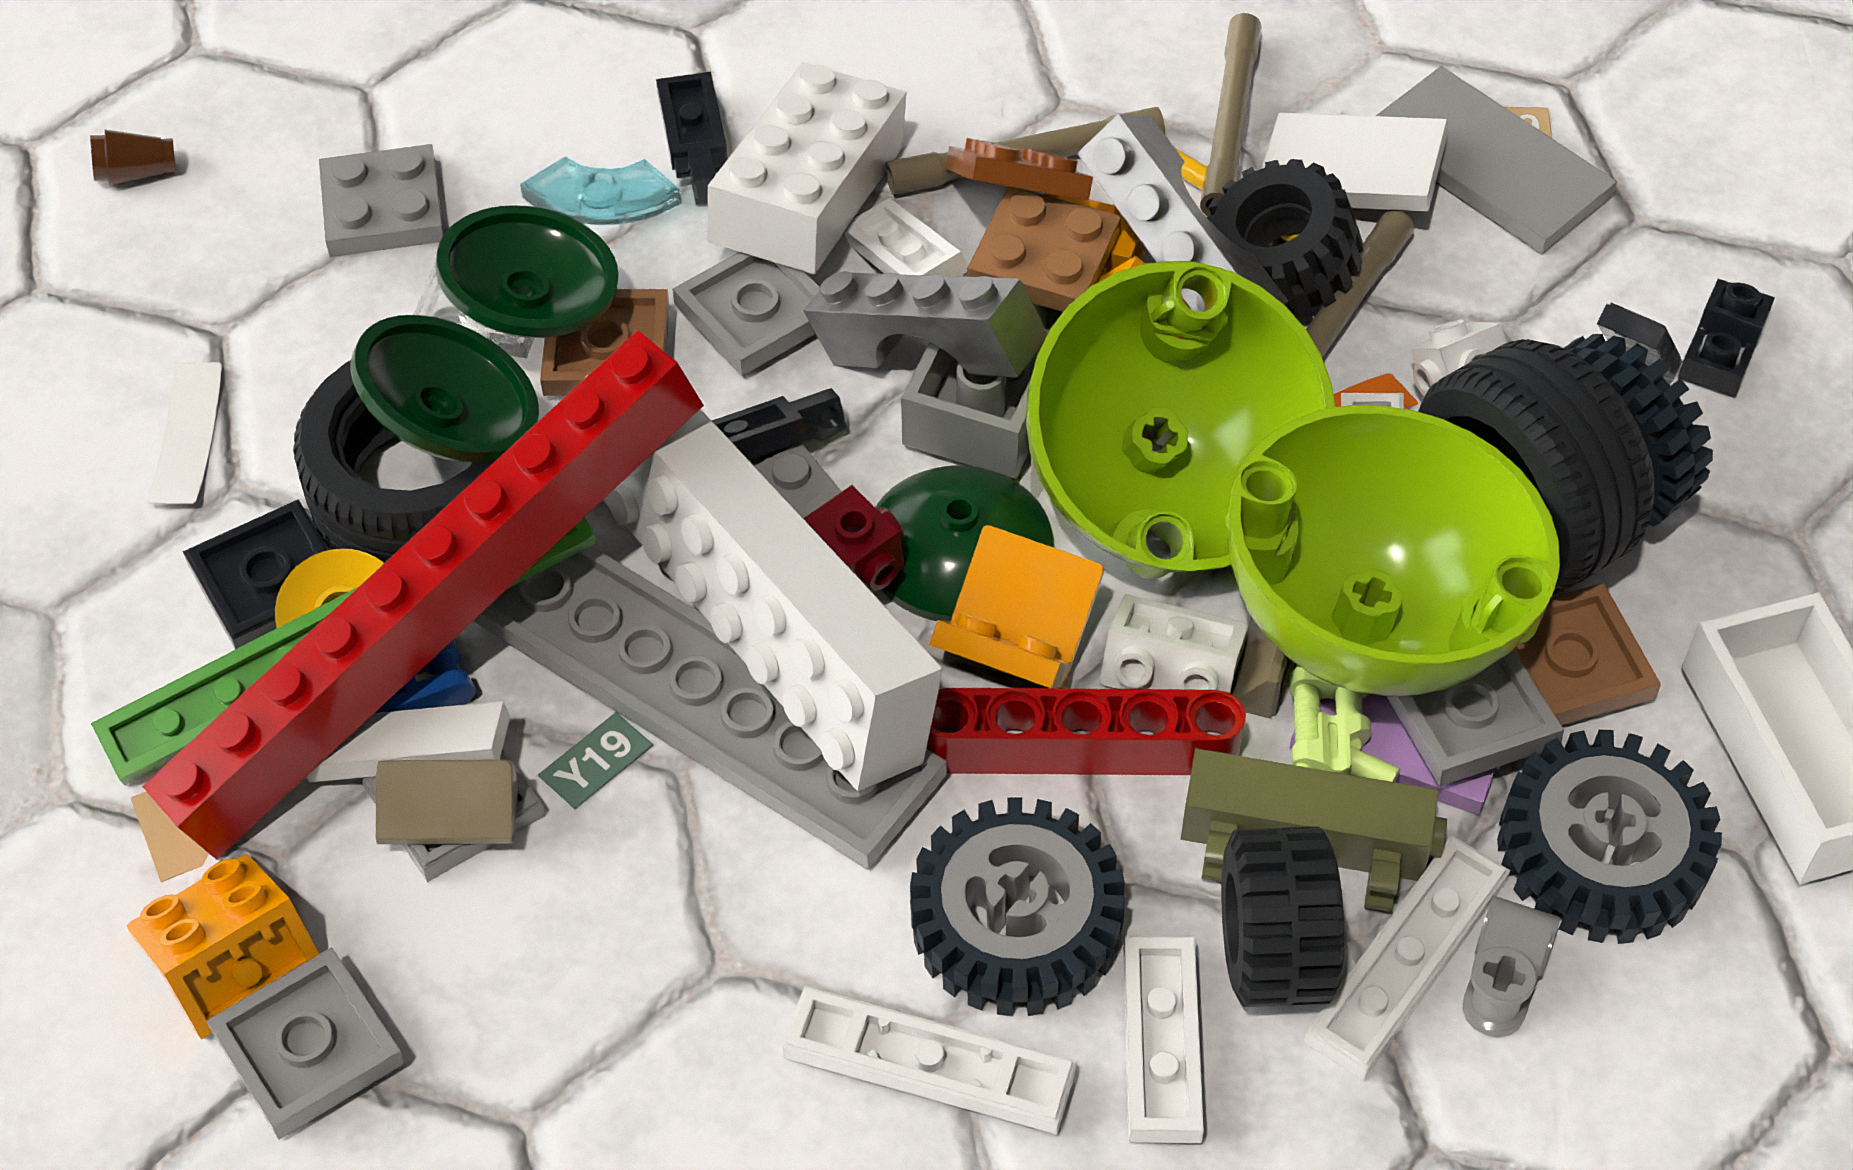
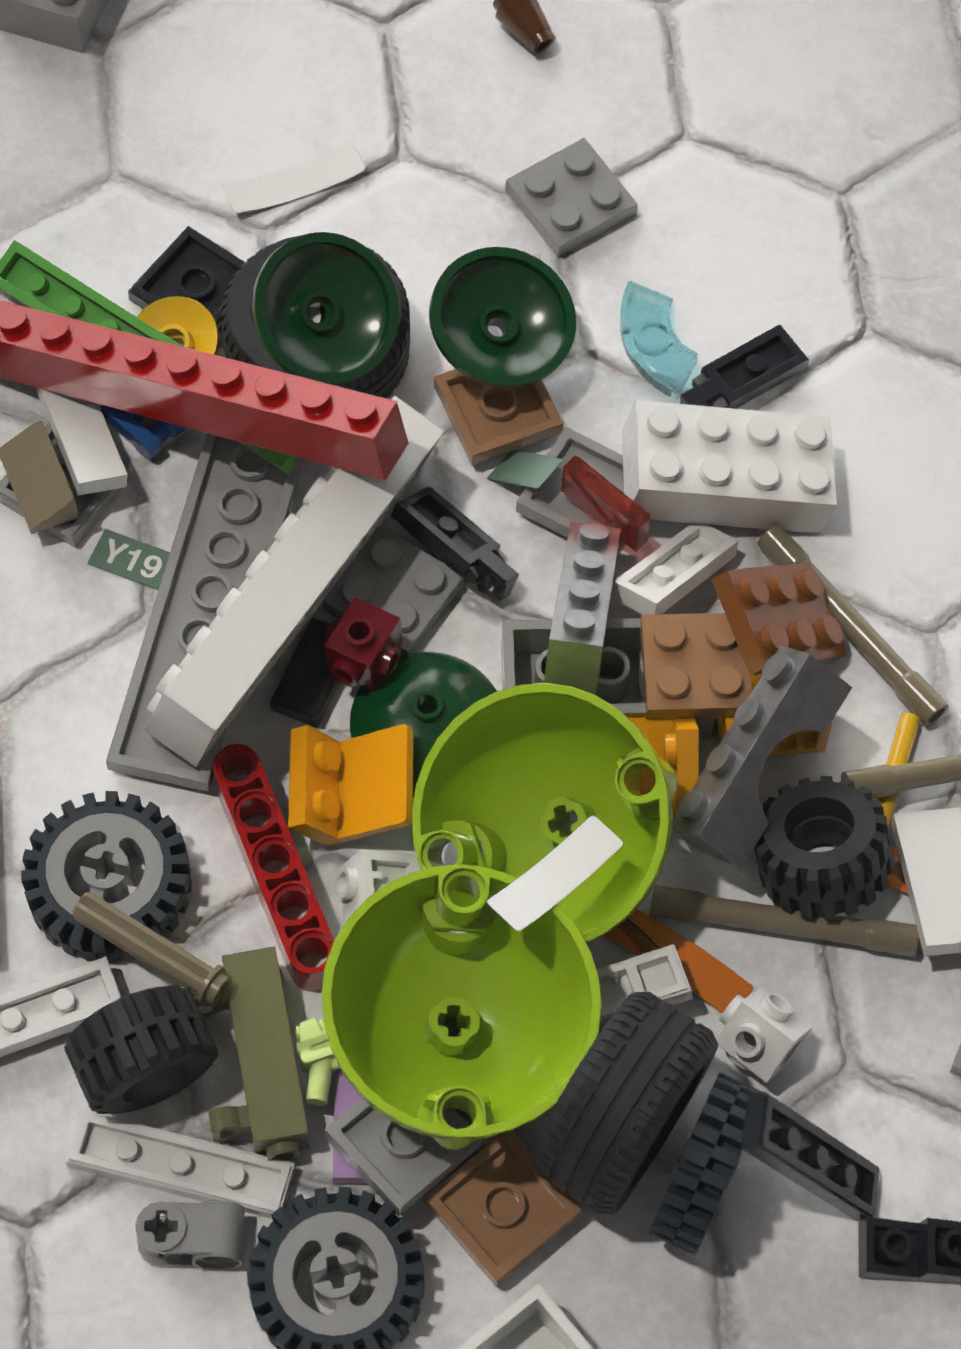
camera: 65 degrees right, 10 degrees up
(706, 337) = (525, 469): none -> sand green sticker
(795, 271) = (605, 502): none -> clear red tile
(1152, 865) = (183, 968): none -> dark tan axle
(1275, 399) = (556, 874): none -> white sticker

